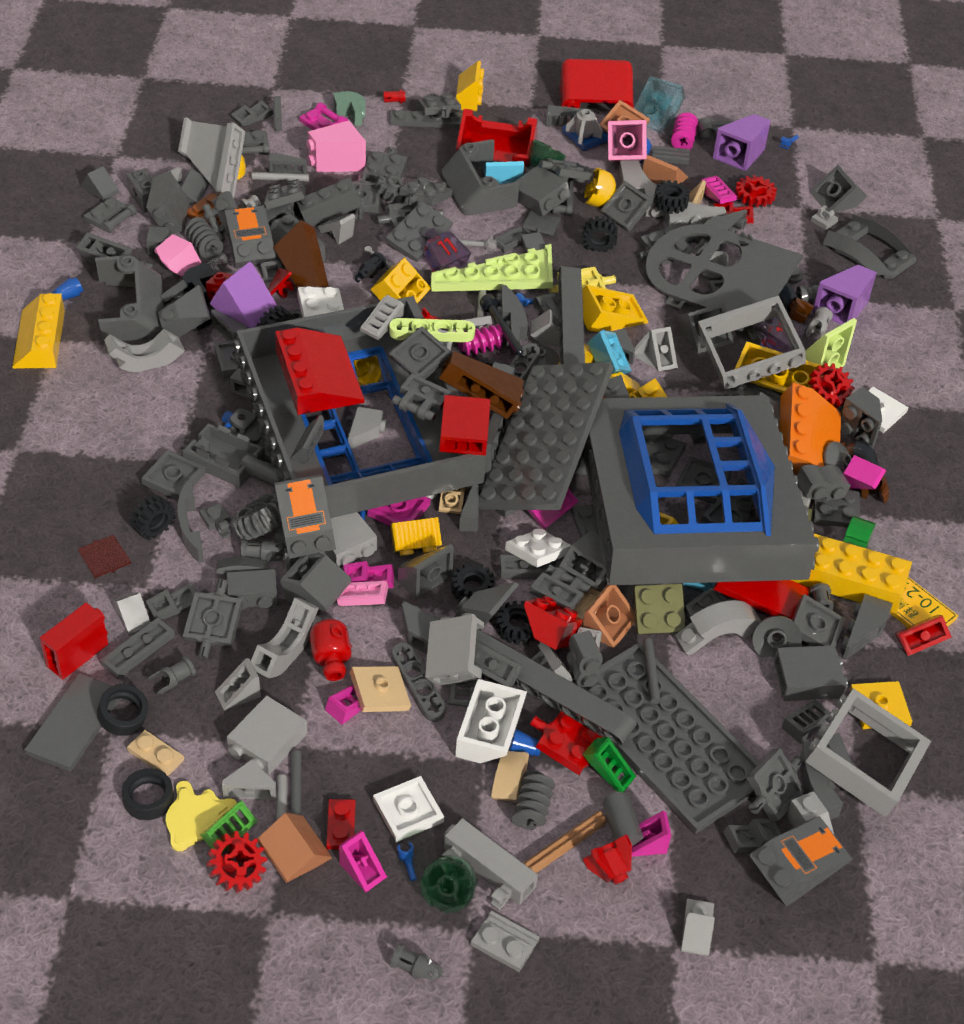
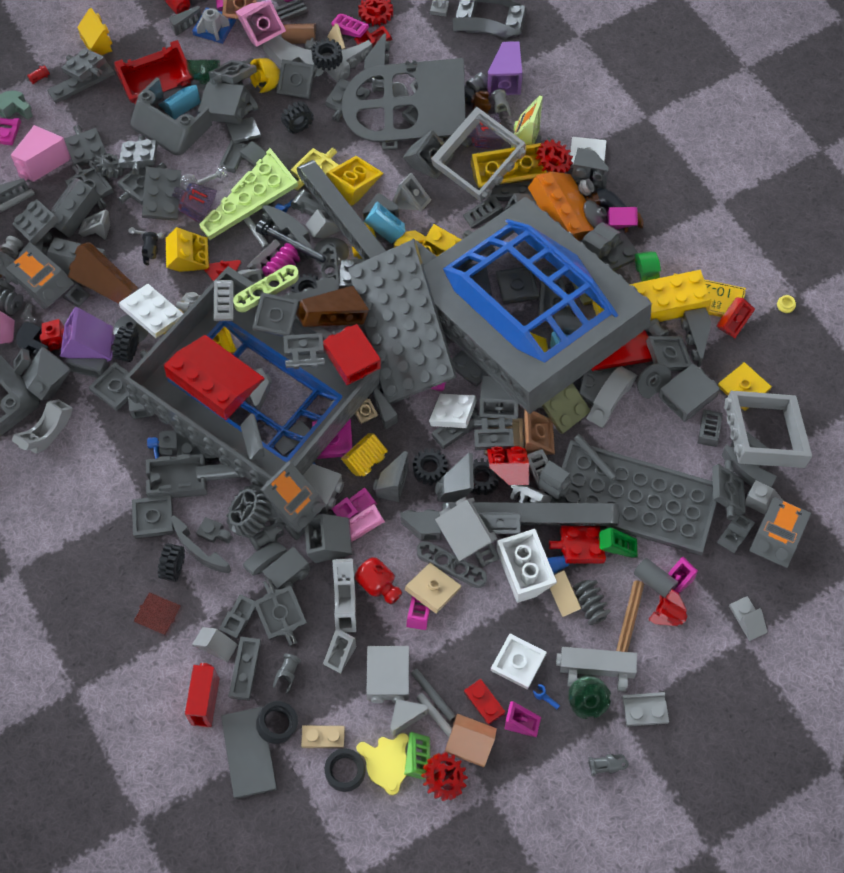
camera: 30 degrees left, 15 degrees up
(279, 282) = (93, 302): red piece -> none
(452, 228) = (186, 179): none -> clear plate
(848, 431) = (586, 187): none -> light grey plate

